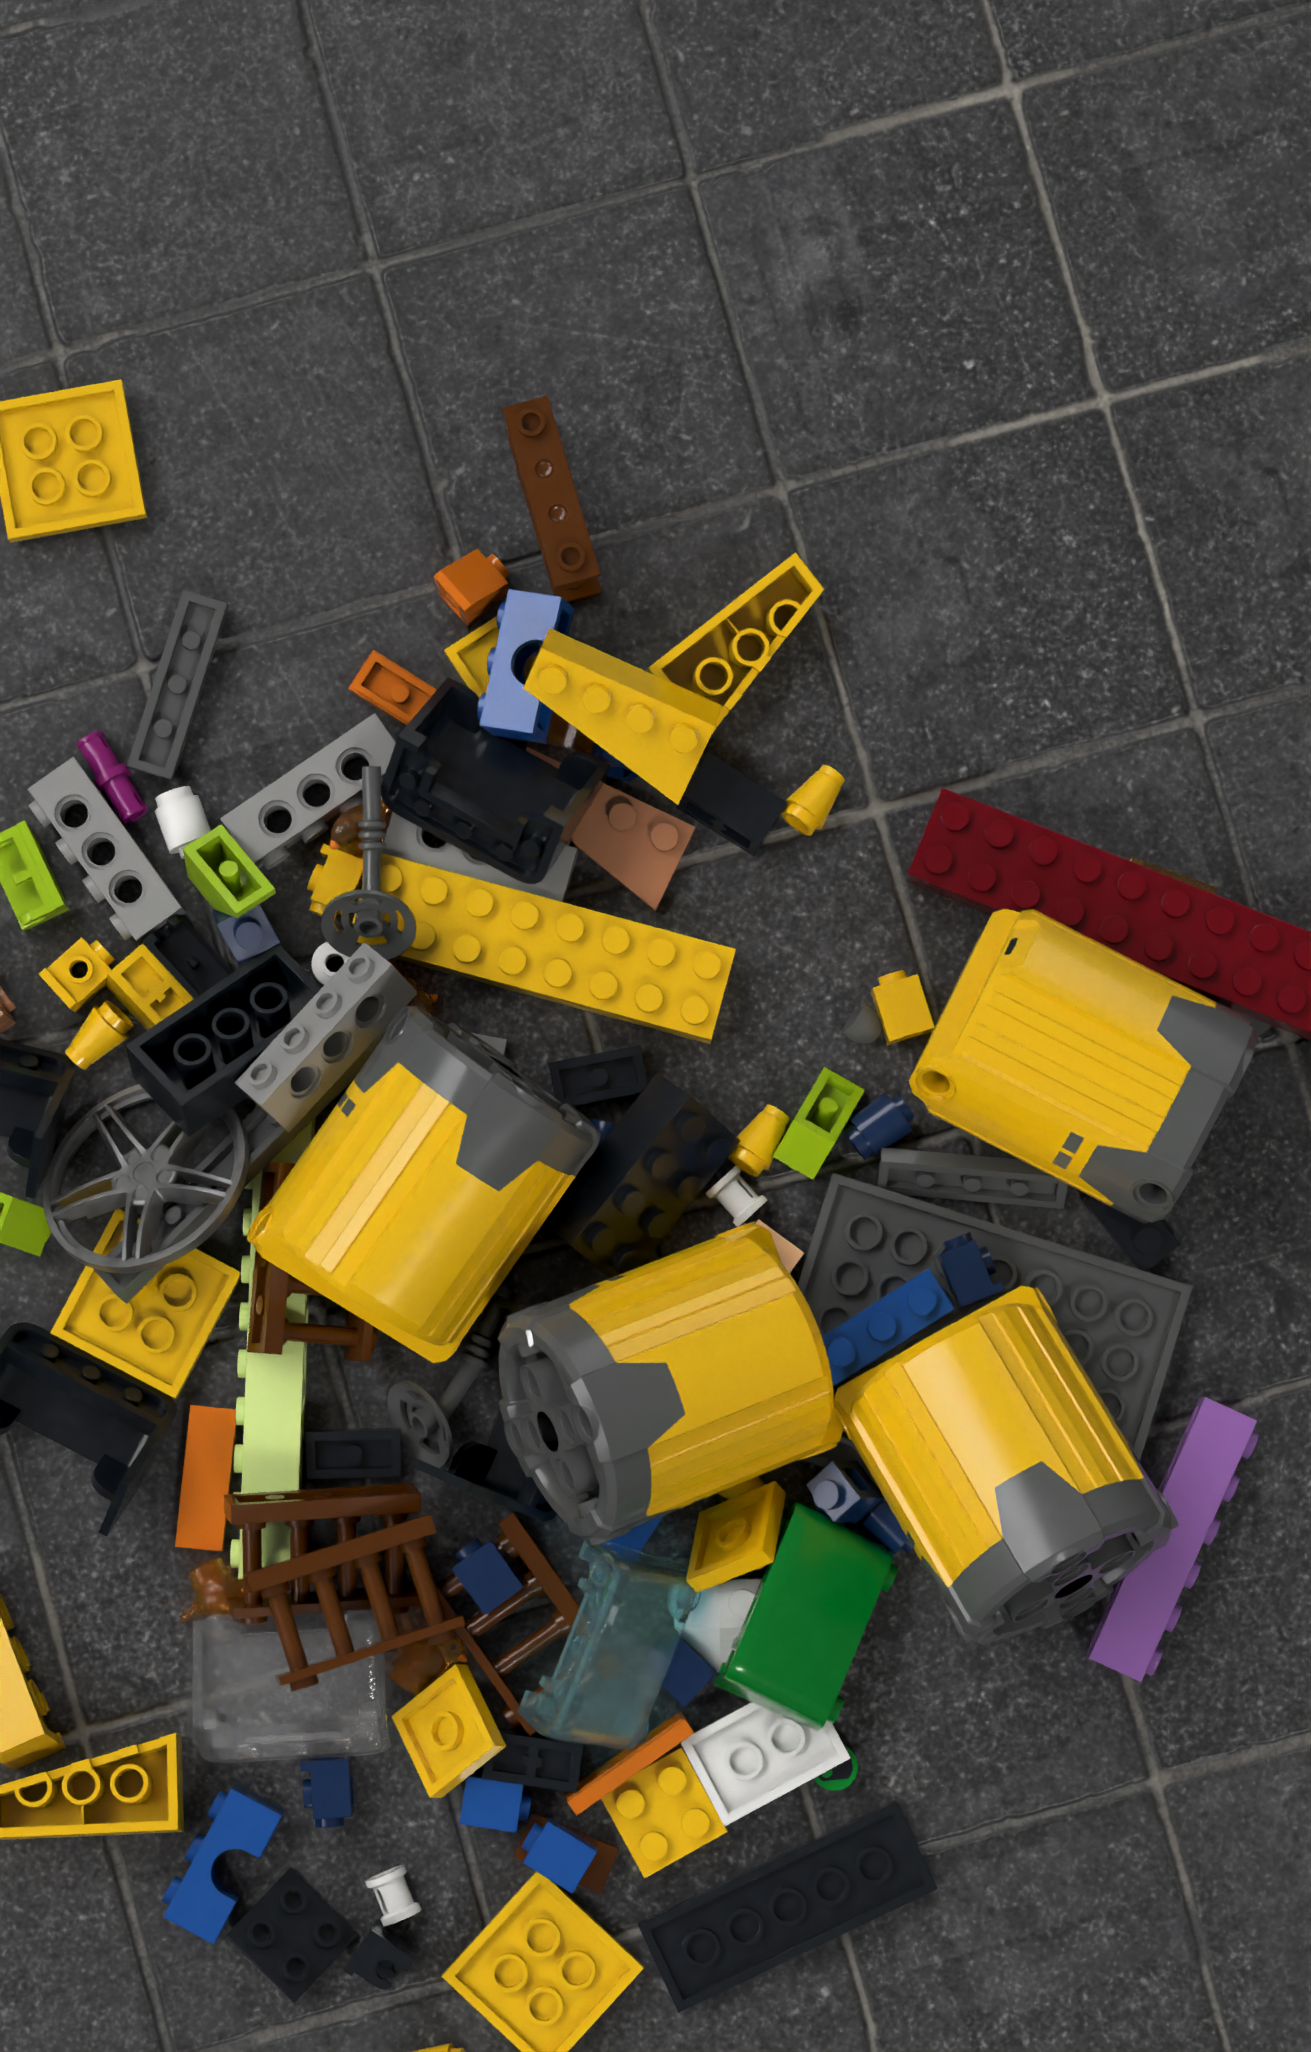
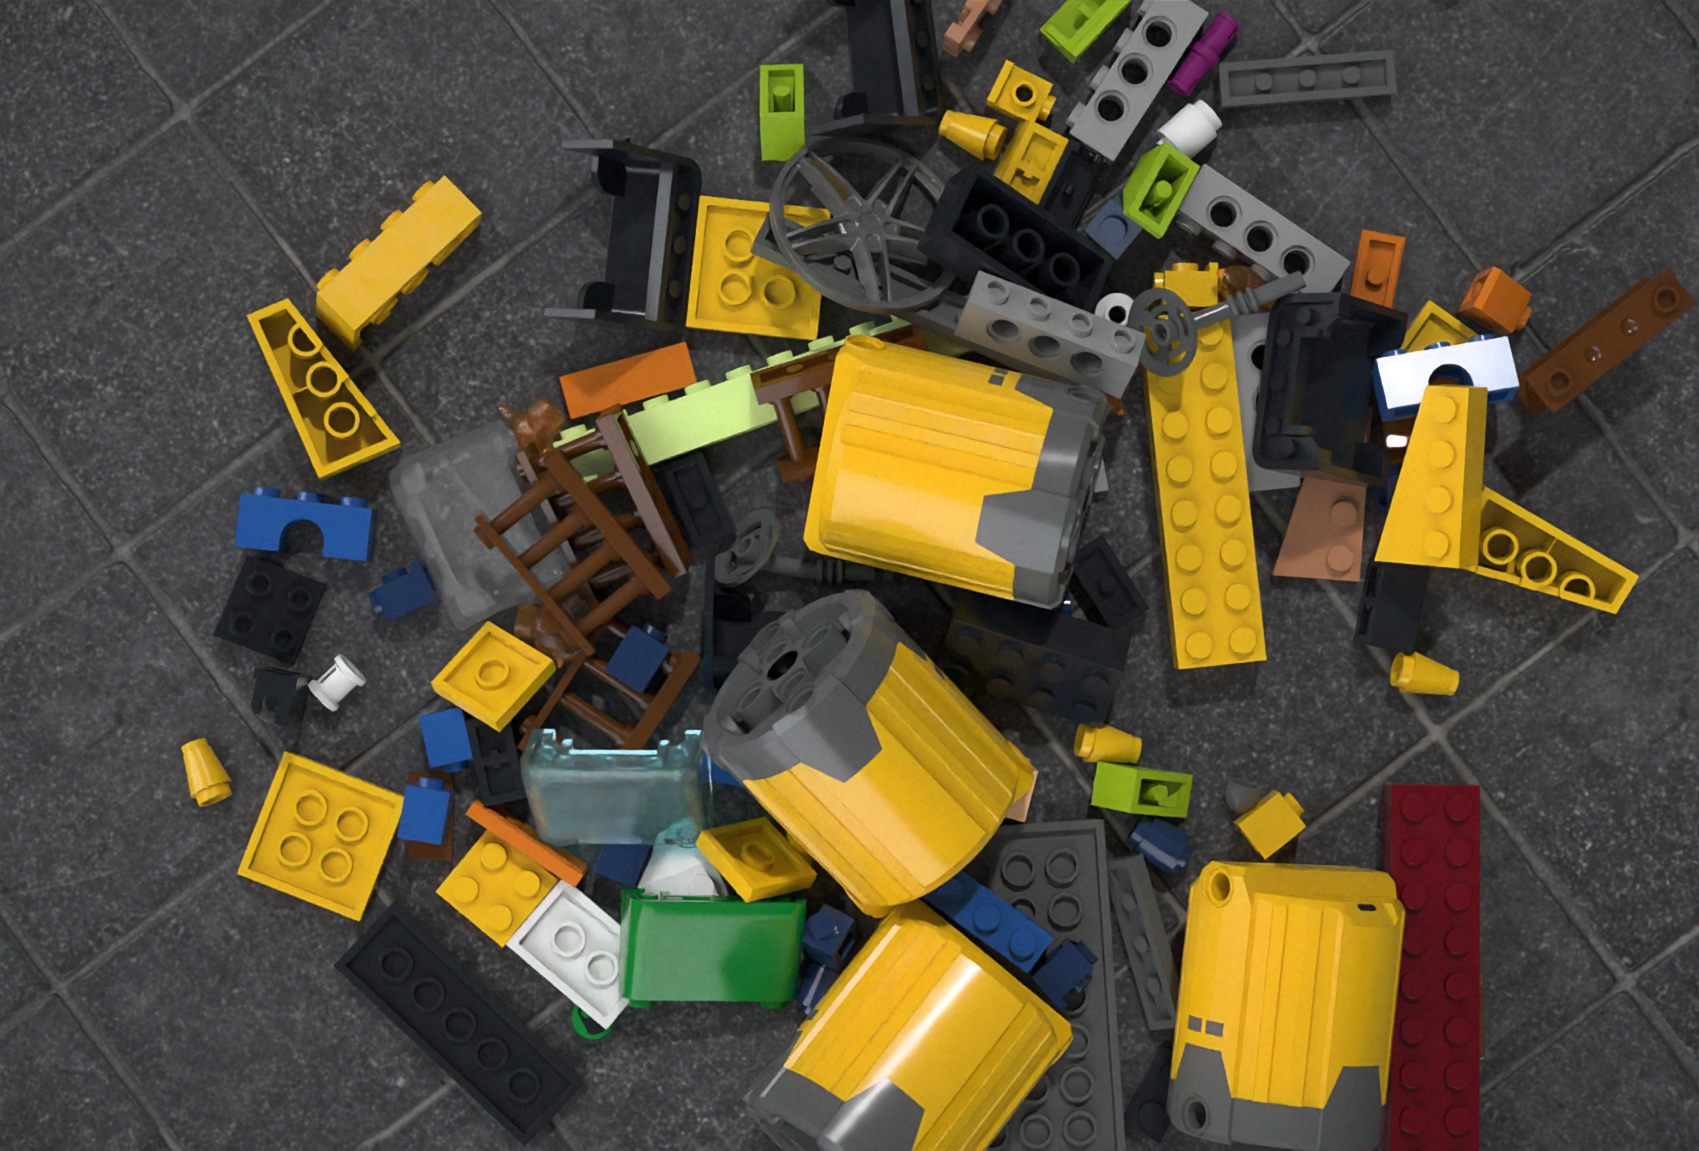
camera: 65 degrees right, 5 degrees up
(736, 1196) = (1050, 743): white bush -> none

